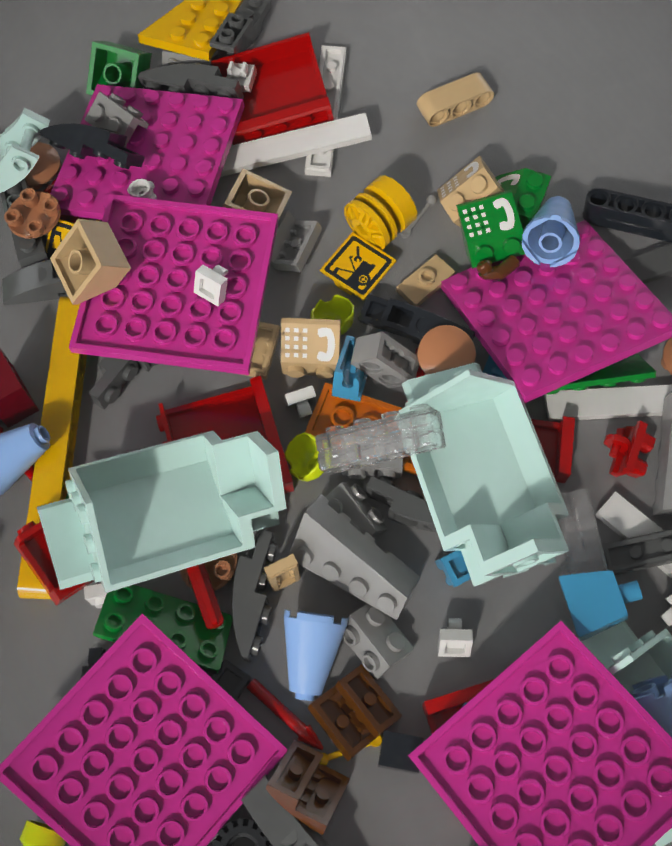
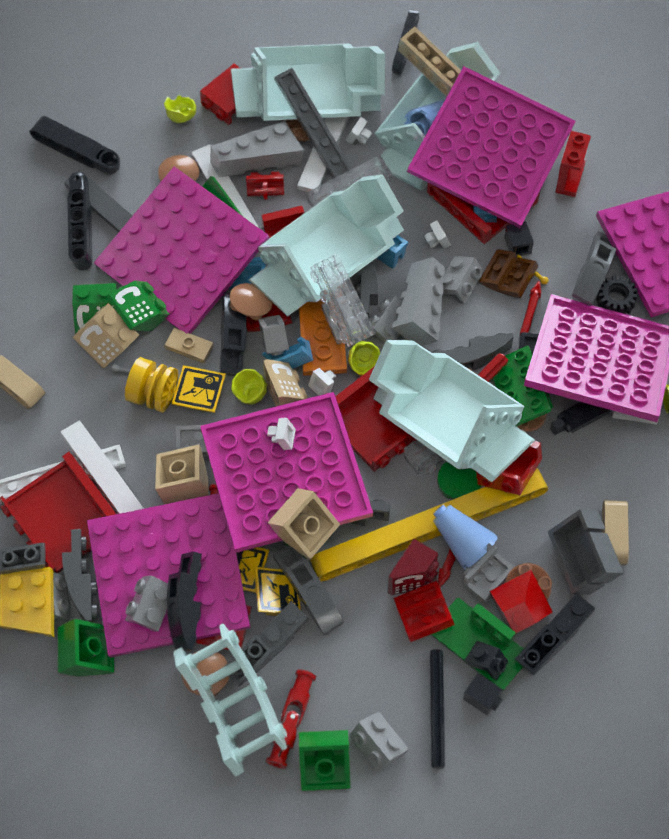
camera: 115 degrees left, 5 degrees down
(33, 214) = (264, 622): nougat dish -> none
(142, 189) = (214, 535): white plate -> none
(244, 73) = (56, 543): white tile -> none
(283, 573) = (450, 334): tan plate -> none
(307, 787) = (565, 271): reddish brown slope -> none
(311, 650) = (485, 304): light blue cone -> none
(497, 272) = (170, 291): reddish brown arm -> none
(552, 234) = (123, 265): light blue cone -> none
(597, 601) = (383, 159): dark azure torso -> none

